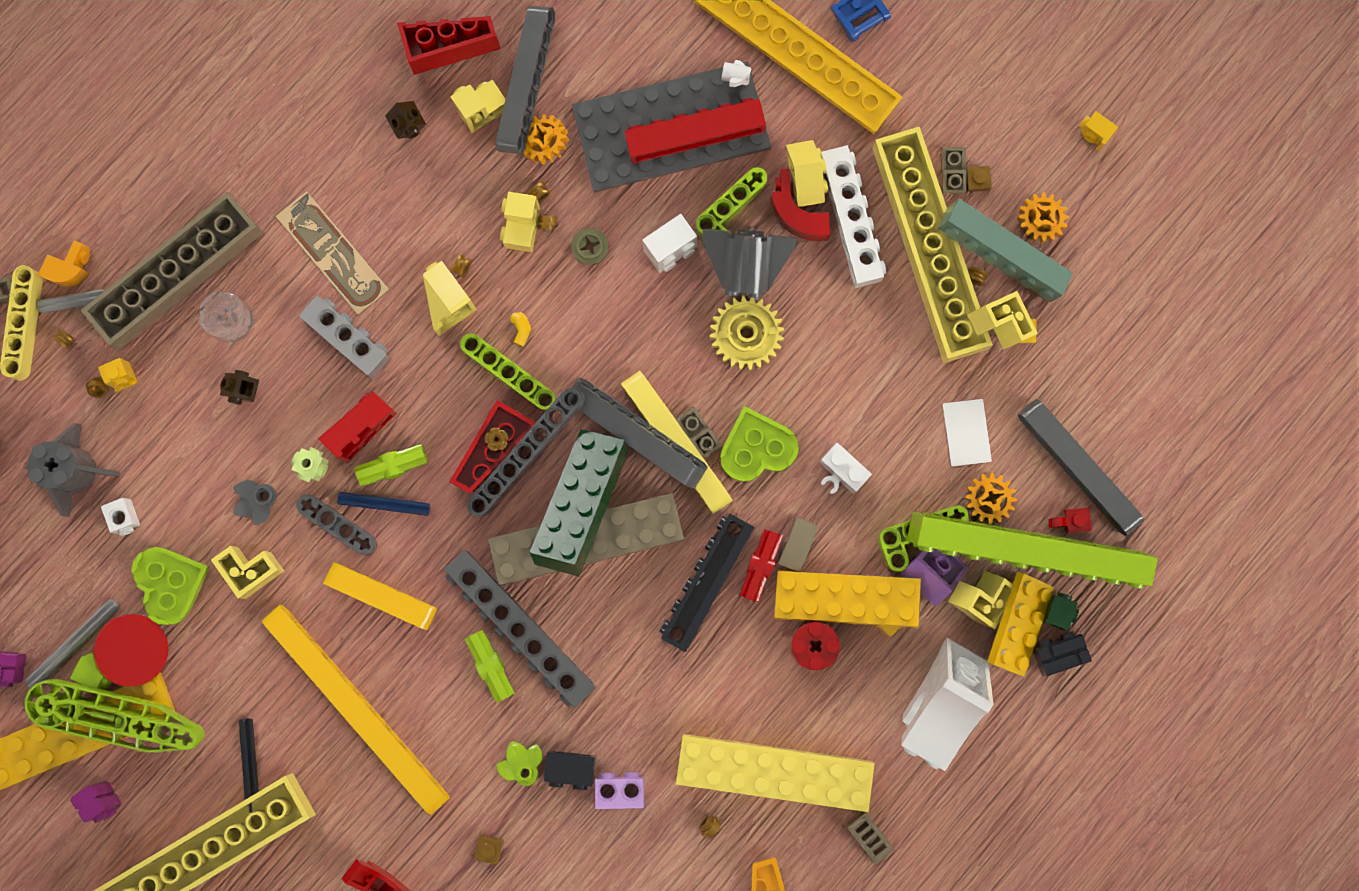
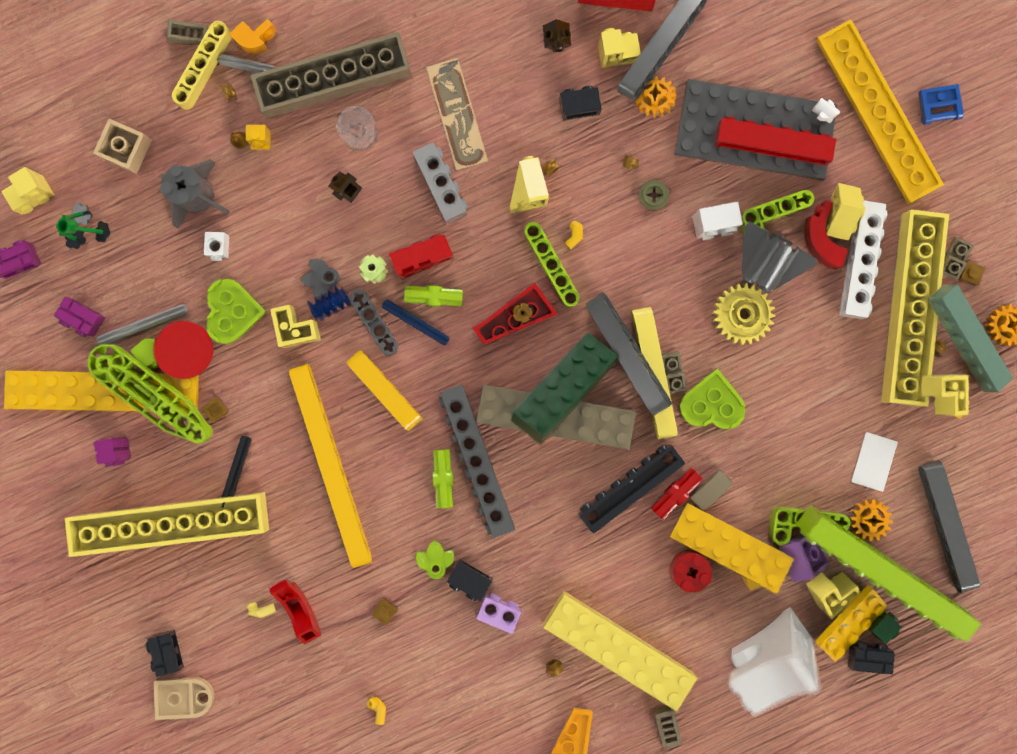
camera: 20 degrees right, 5 degrees up
(196, 703) = (215, 409): none -> pearl gold plate
(276, 525) = (329, 303): none -> clear blue piece
(463, 181) = (580, 103): none -> black piece
(515, 456) = (529, 332): dark grey beam -> none
(521, 217) = (613, 148): light yellow brick -> none
(539, 191) = (633, 137): pearl gold bush -> none
(843, 469) = (770, 449): white brick -> none
(1074, 520) = (924, 563): red plate -> none

